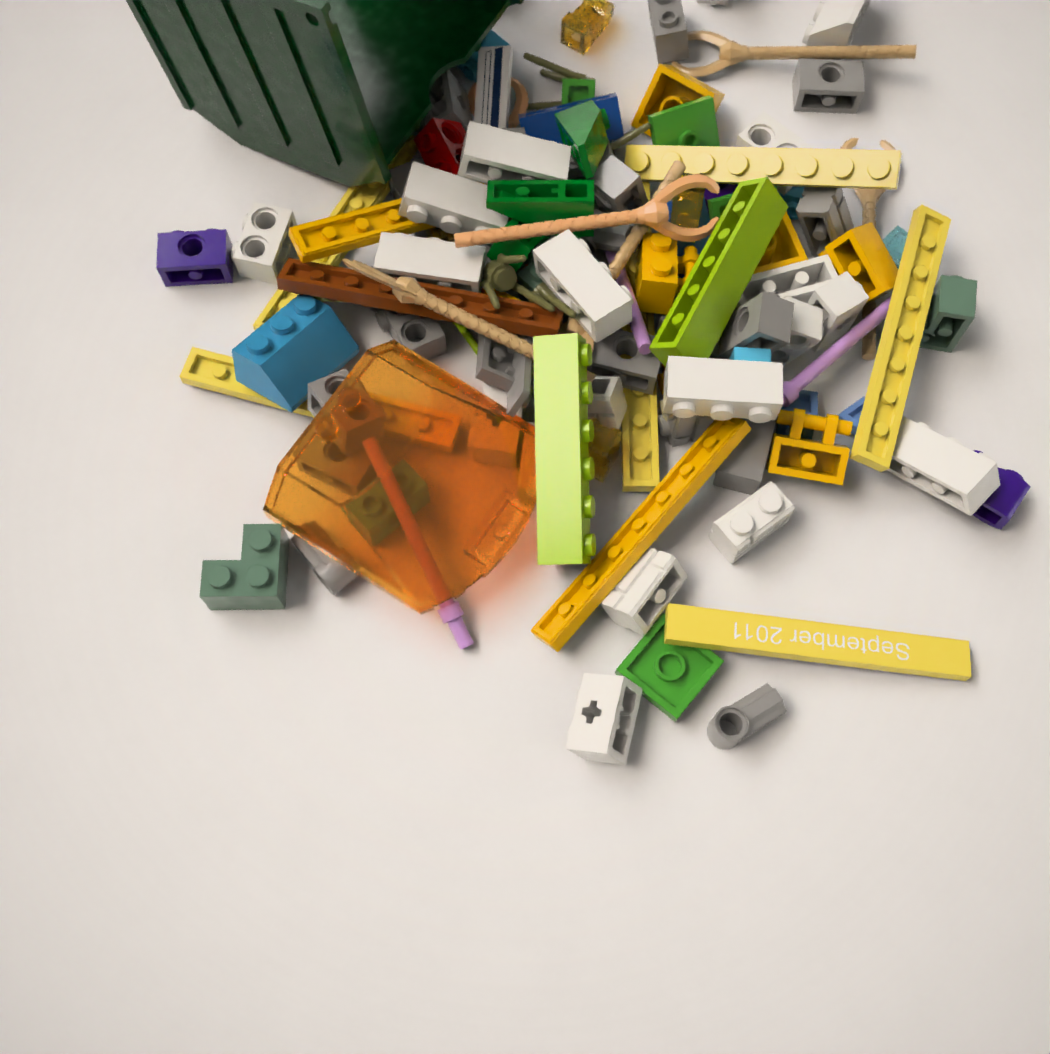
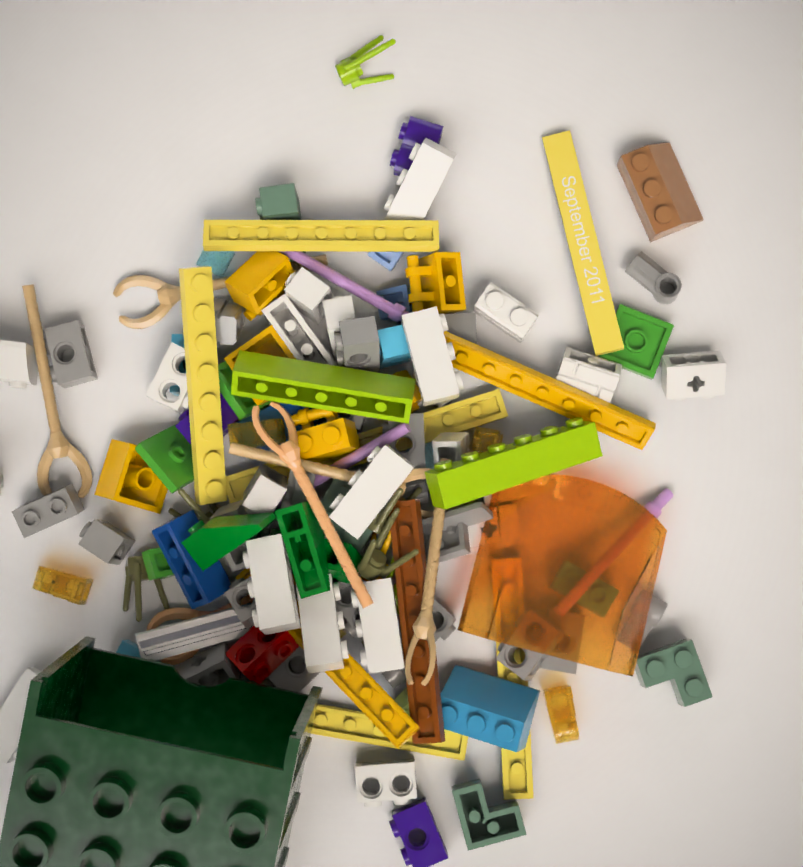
camera: 100 degrees left, 15 degrees up
(178, 314) = (482, 823): none -> sand green brick
(258, 436) = (561, 713): none -> clear yellow leg
(617, 56) = (105, 541): none -> light grey brick
(864, 766) = (659, 190): none -> medium nougat slope

